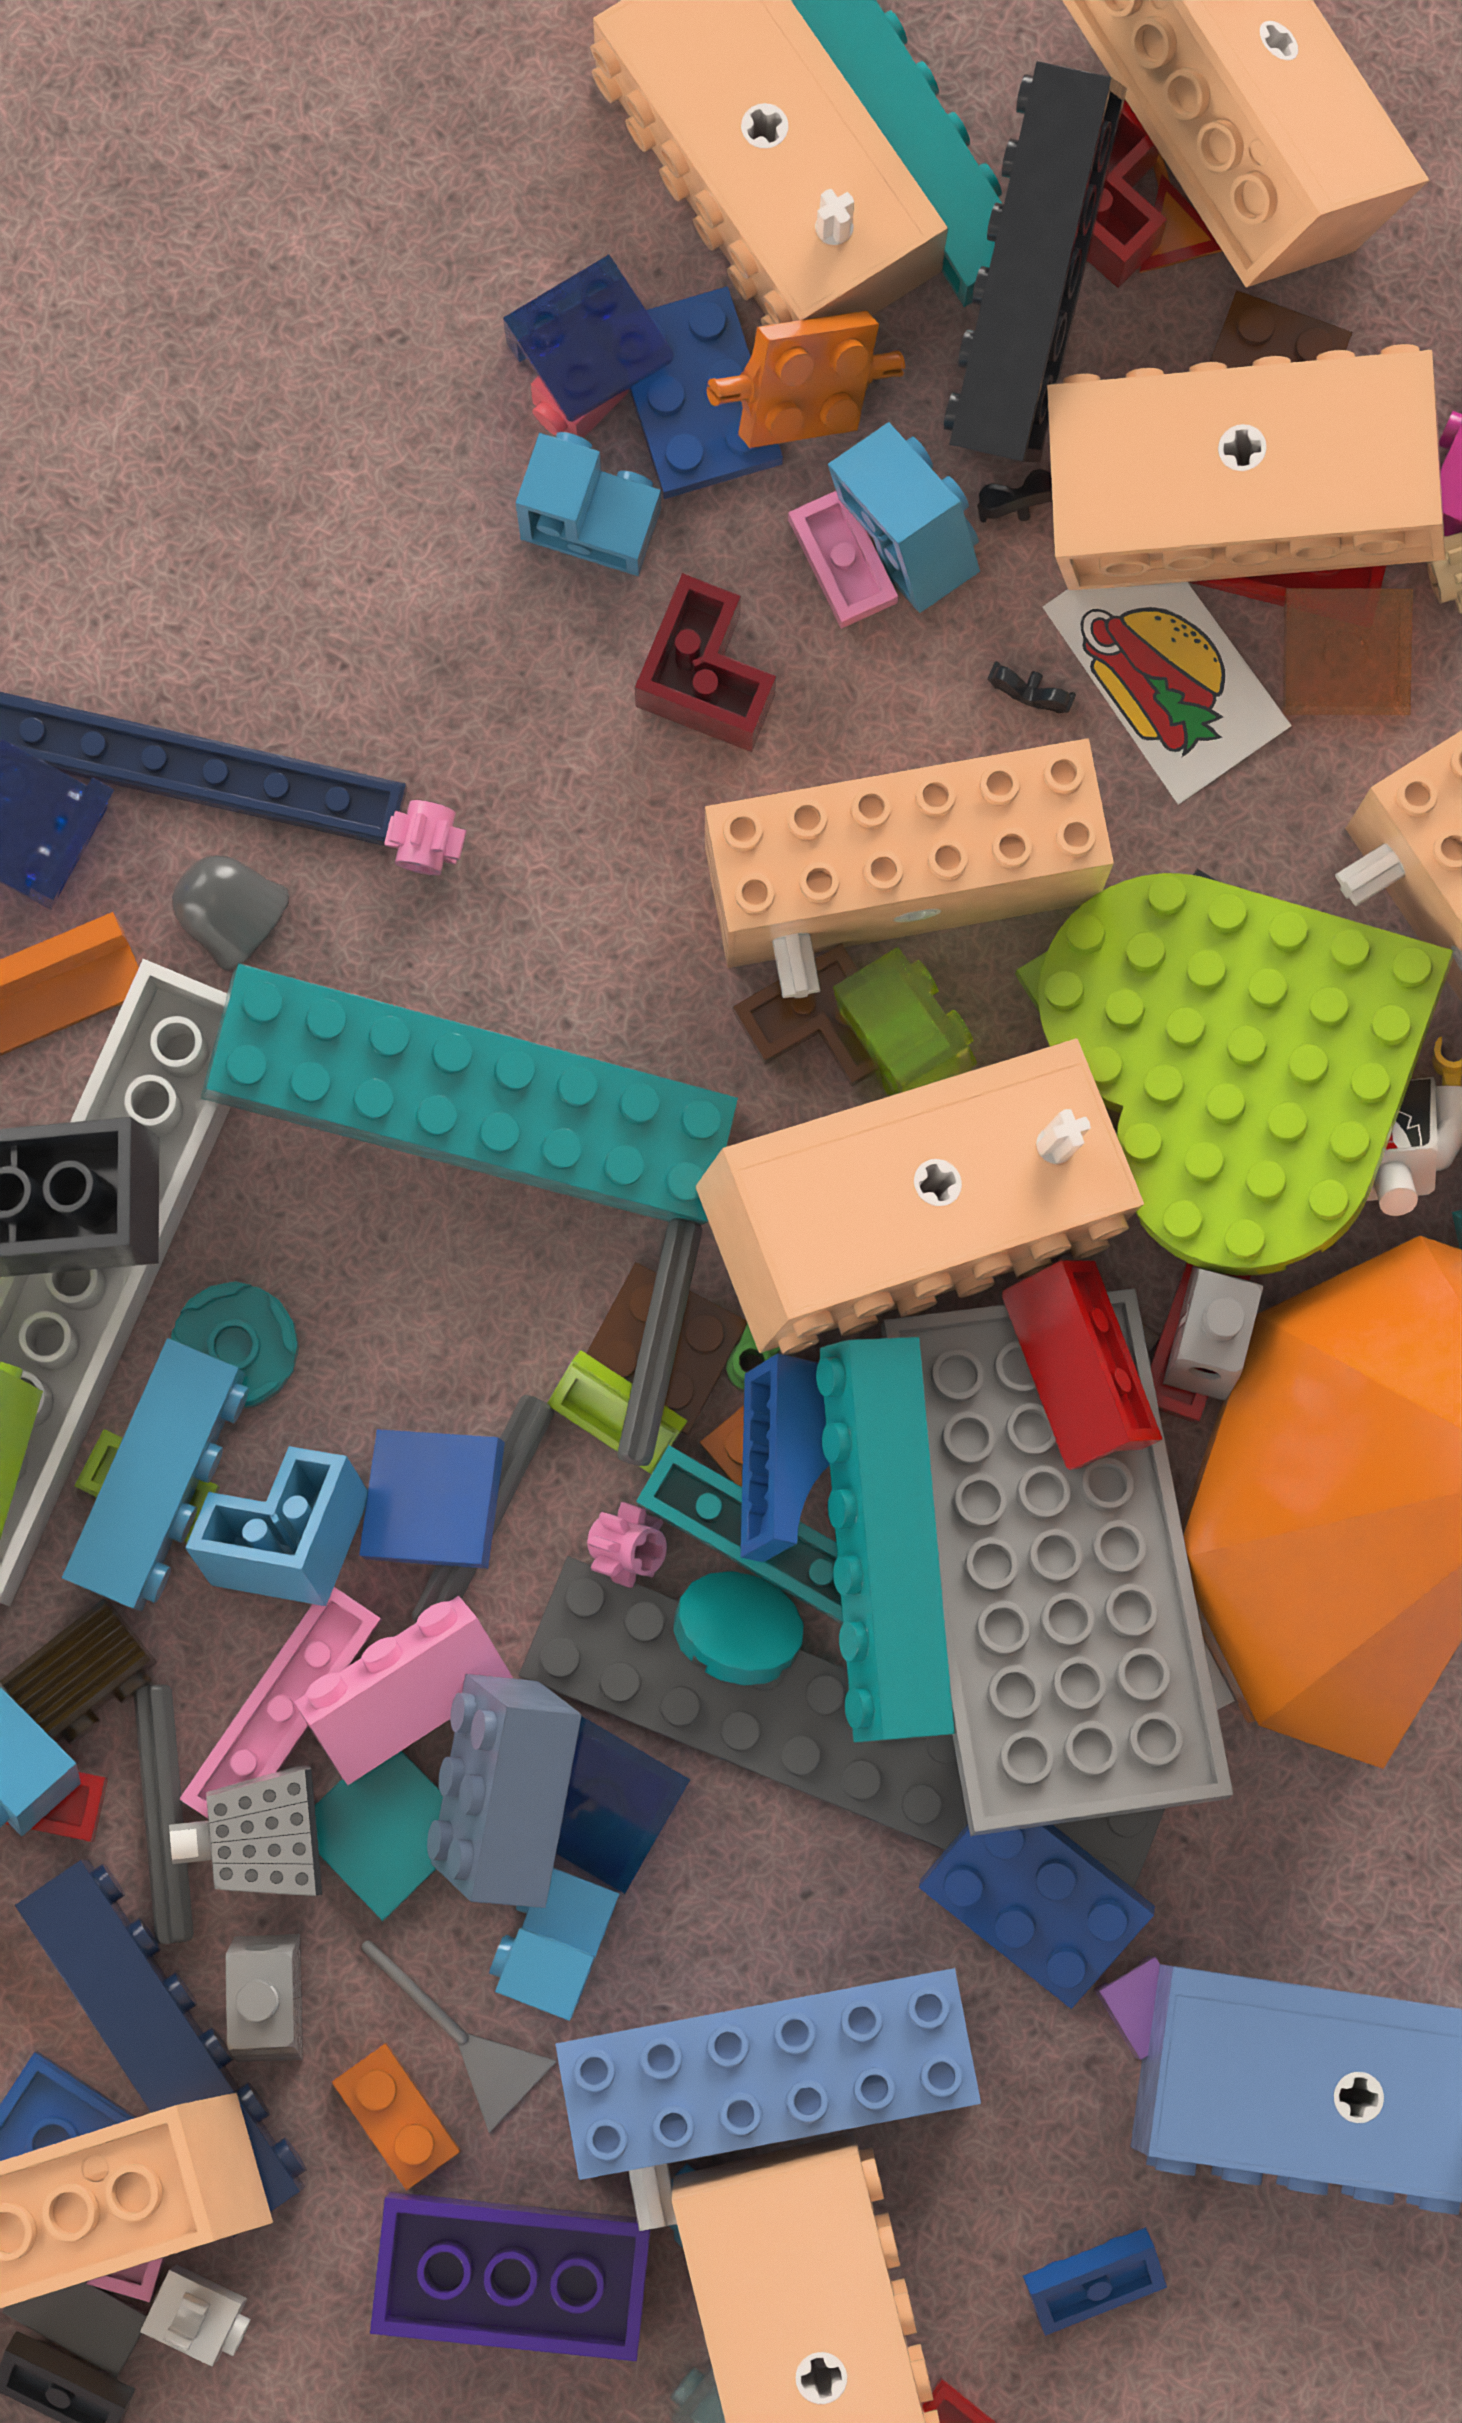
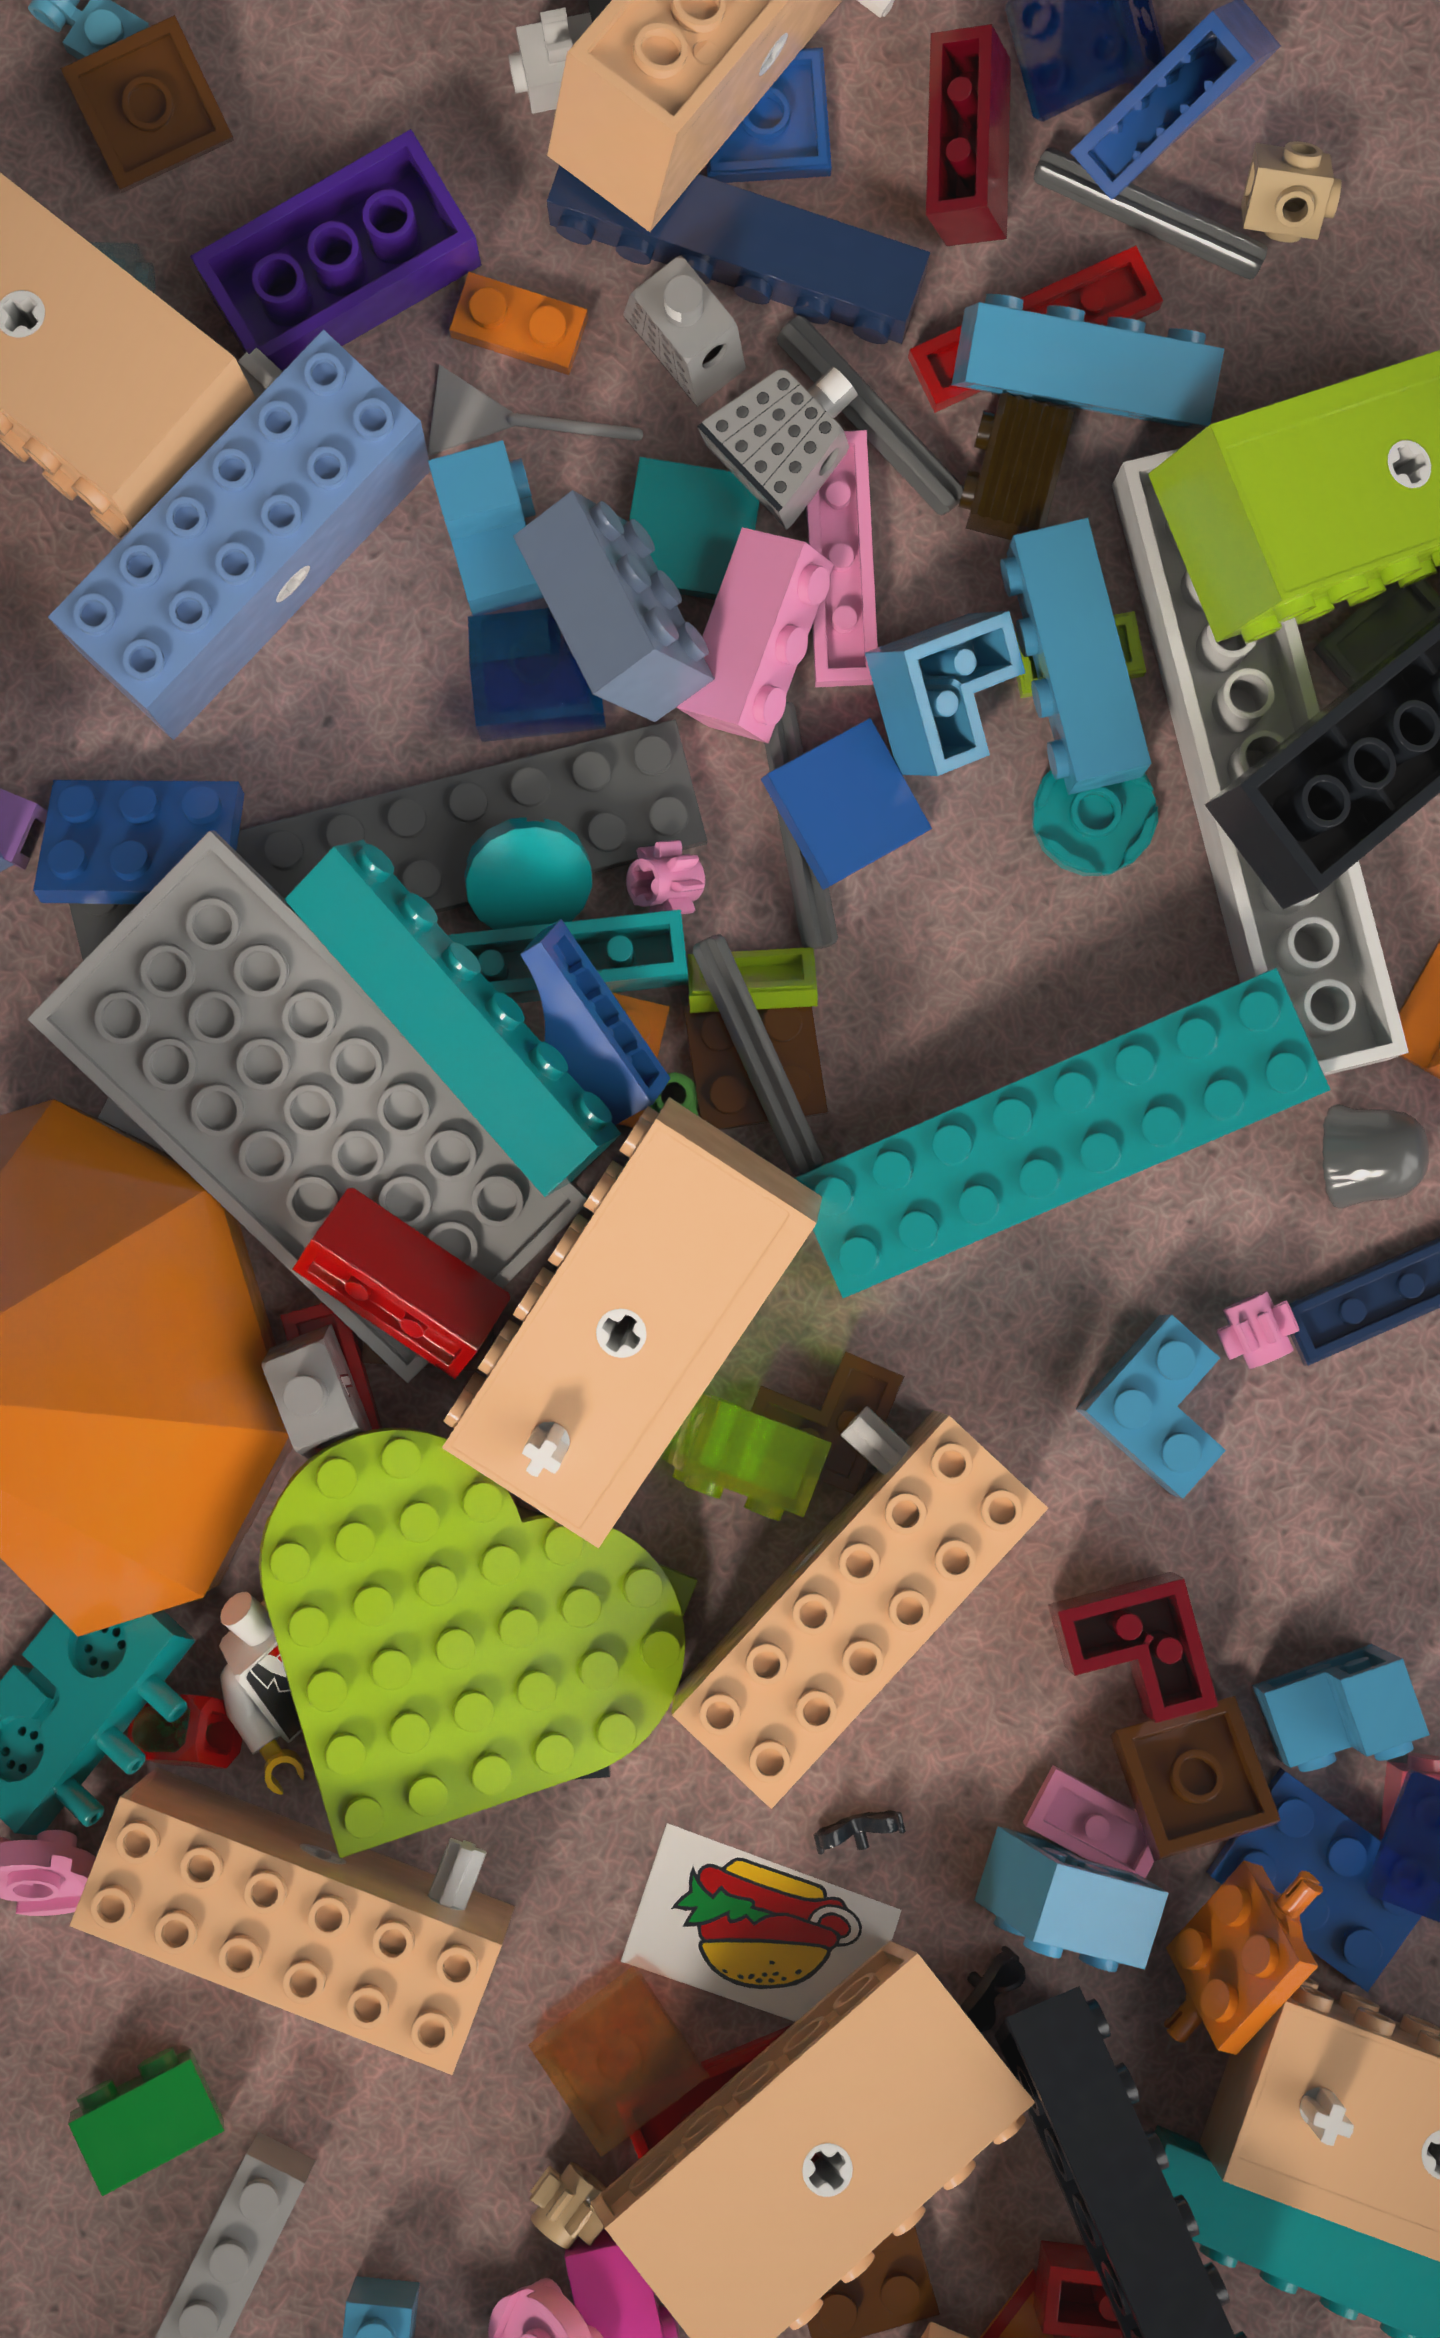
camera: 140 degrees right, 5 degrees up
(559, 852) = (1140, 1401): none -> dark azure brick
(740, 534) = (1195, 1779): none -> reddish brown plate

